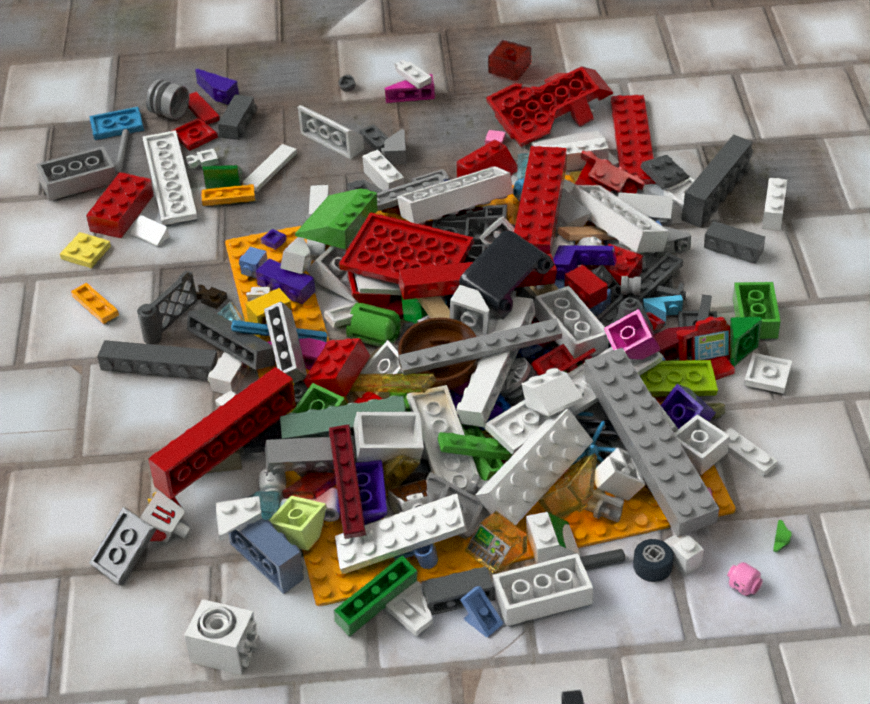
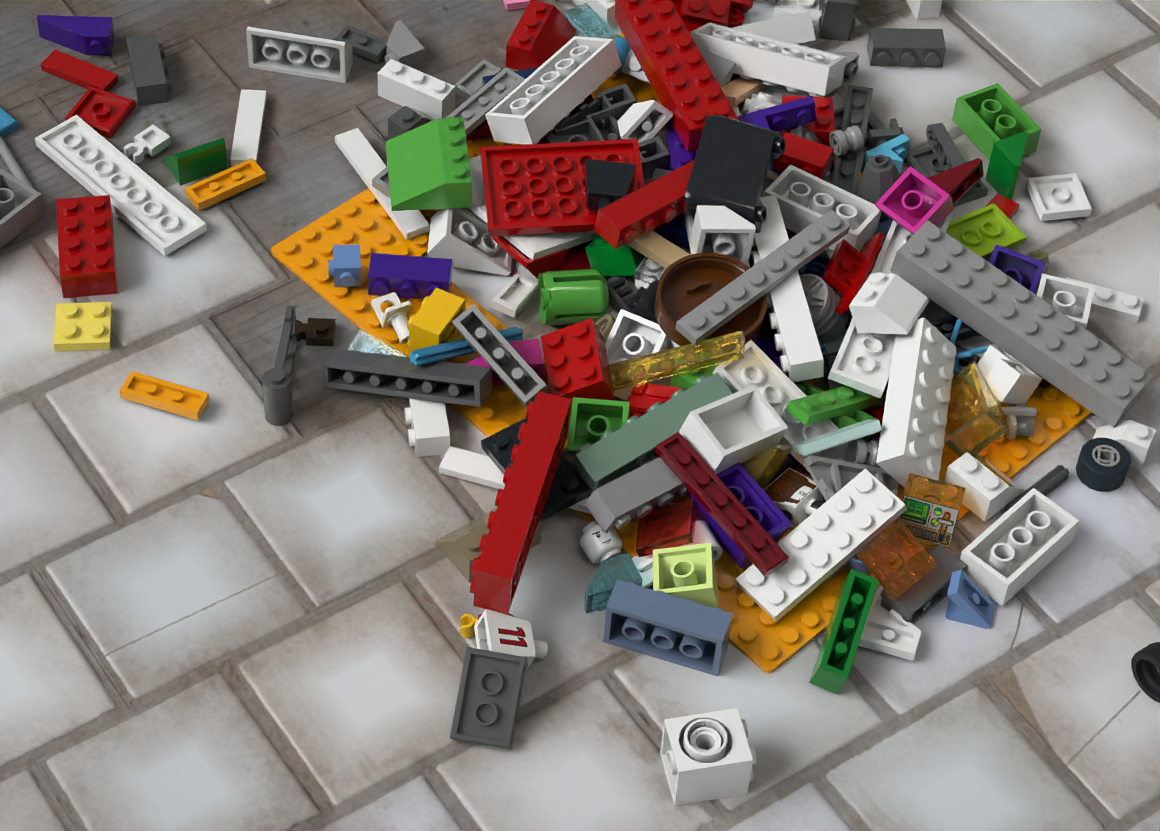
camera: 35 degrees left, 5 degrees up
(150, 231) = (156, 269): white slope -> none
(157, 359) = (320, 442): dark grey brick -> none
(167, 99) = (31, 72): light grey wheel -> none
(237, 514) = (623, 599): white wing -> none
(273, 239) = (341, 225): dark purple tile -> none
(296, 256) = (410, 237): white slope -> none
(428, 254) = (607, 182): none -> black torso
(441, 547) = (898, 541): none -> clear orange piece
(460, 468) = (836, 437): none -> light aqua tile
(709, 340) = (979, 182): piece -> none

